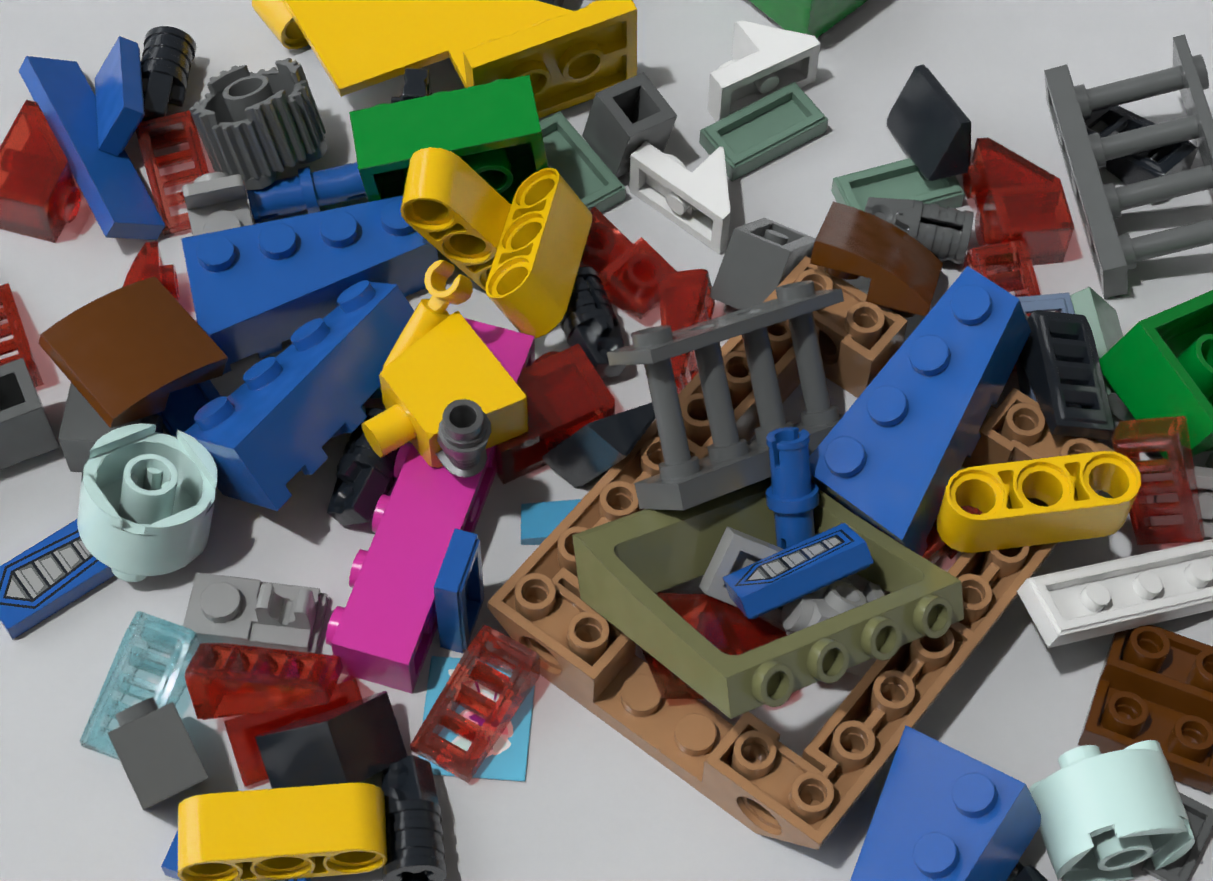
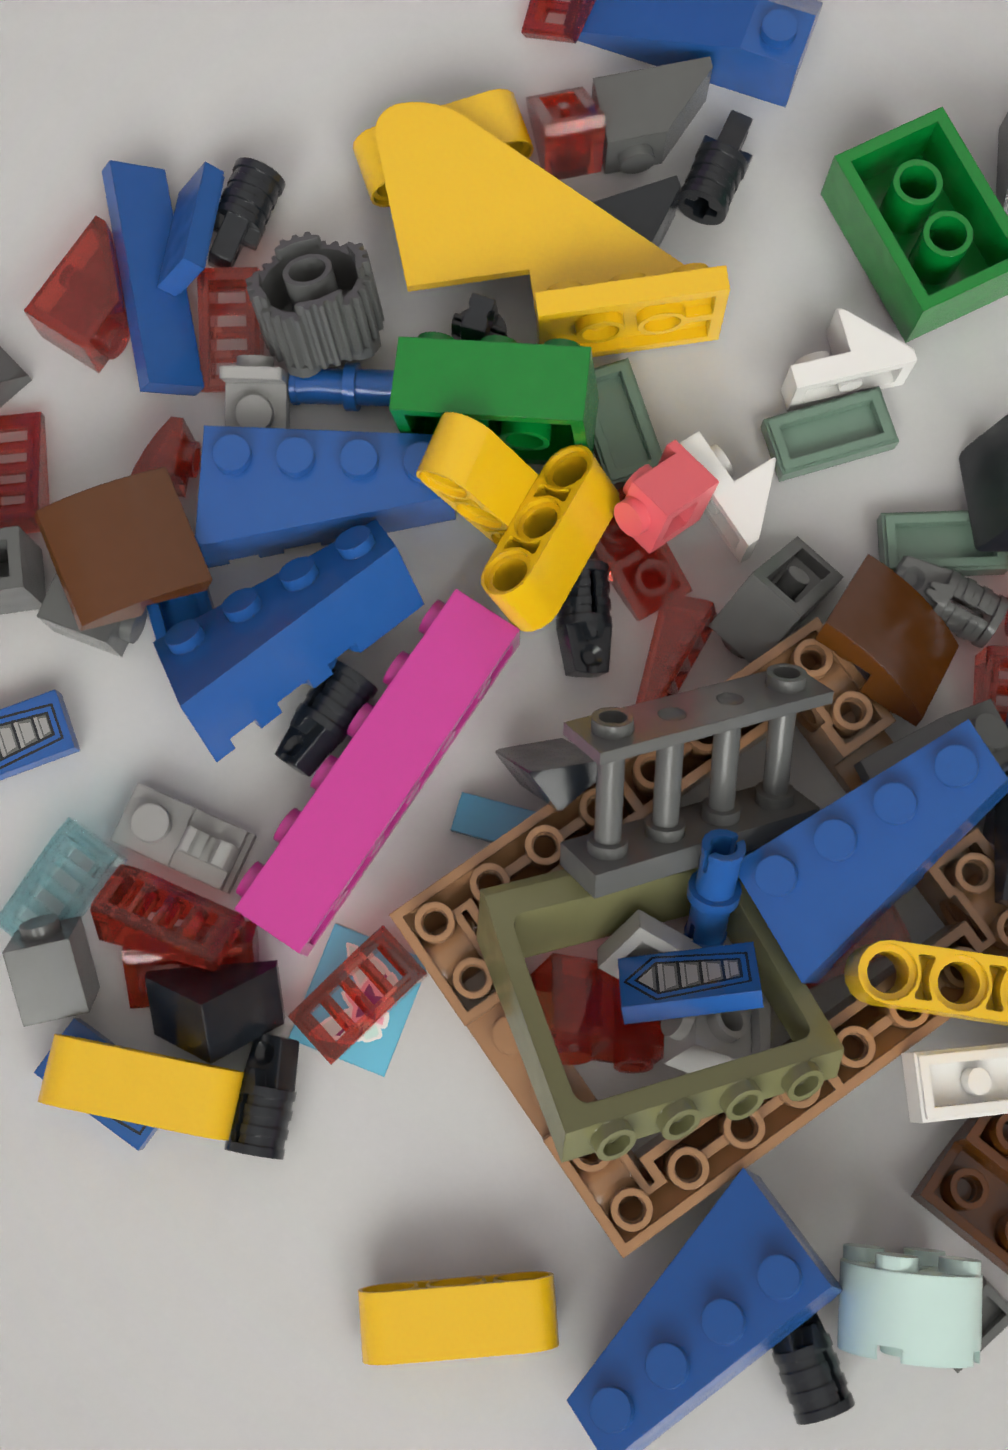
camera: 20 degrees right, 20 degrees up
(146, 501) = (126, 678): light aqua brick -> none
(445, 386) = (407, 678): yellow torso -> none
(459, 591) = (367, 889): blue tile -> none
(561, 399) = (516, 706): clear red slope -> none
(624, 197) = (665, 498): none -> coral brick
(625, 119) = (689, 401): dark grey brick -> none

